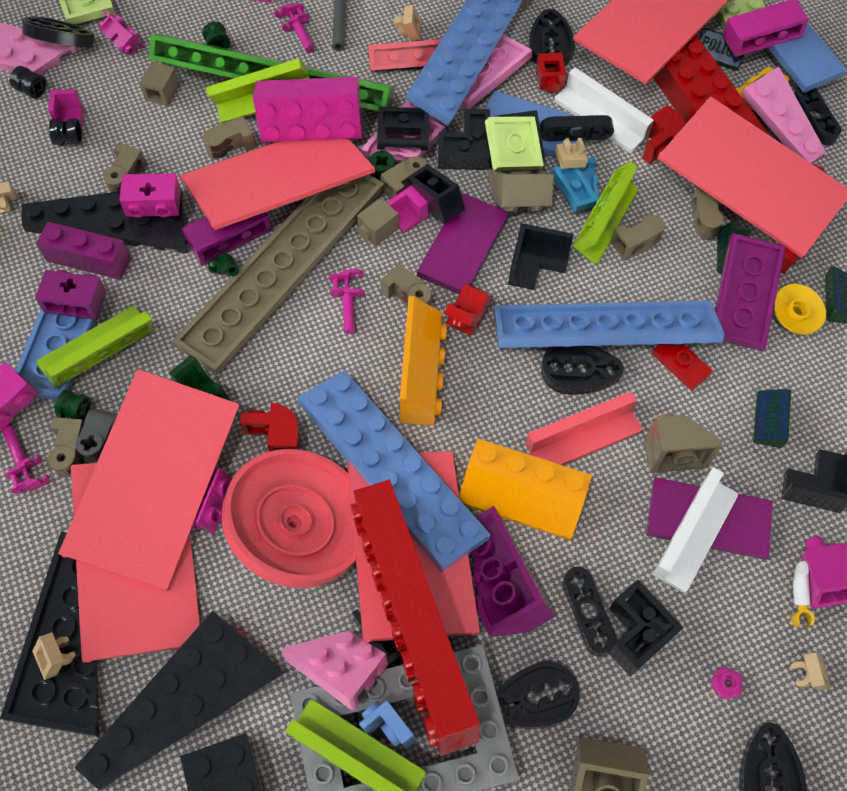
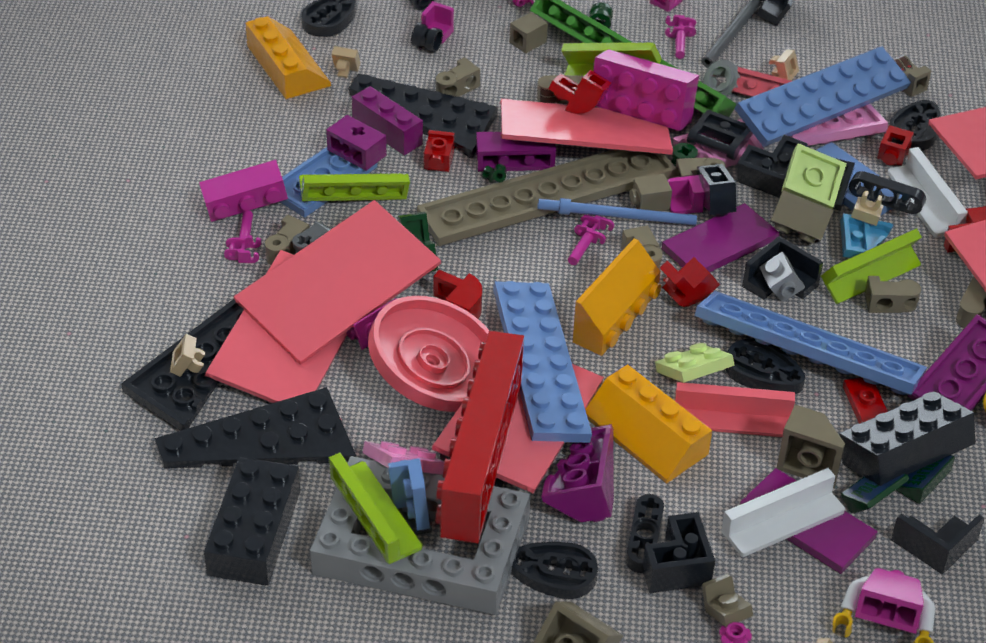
camera: 30 degrees right, 20 degrees down
(72, 405) = (307, 213): dark green wheel -> none
(150, 195) = (466, 99): dark pink brick -> none
(154, 263) = (439, 151): none -> red brick
(258, 142) = (581, 96): none -> red brick
(312, 275) = (565, 207): none -> medium blue bar
(359, 53) = (725, 69): none -> light grey gear
(527, 400) = (694, 363): none -> yellowish green plate
(542, 263) = (781, 277): none -> light grey bracket
(703, 655) = (723, 602): none -> dark tan bracket
(745, 457) = (866, 494): none -> dark green slope
(748, 391) = (908, 438): none -> black brick

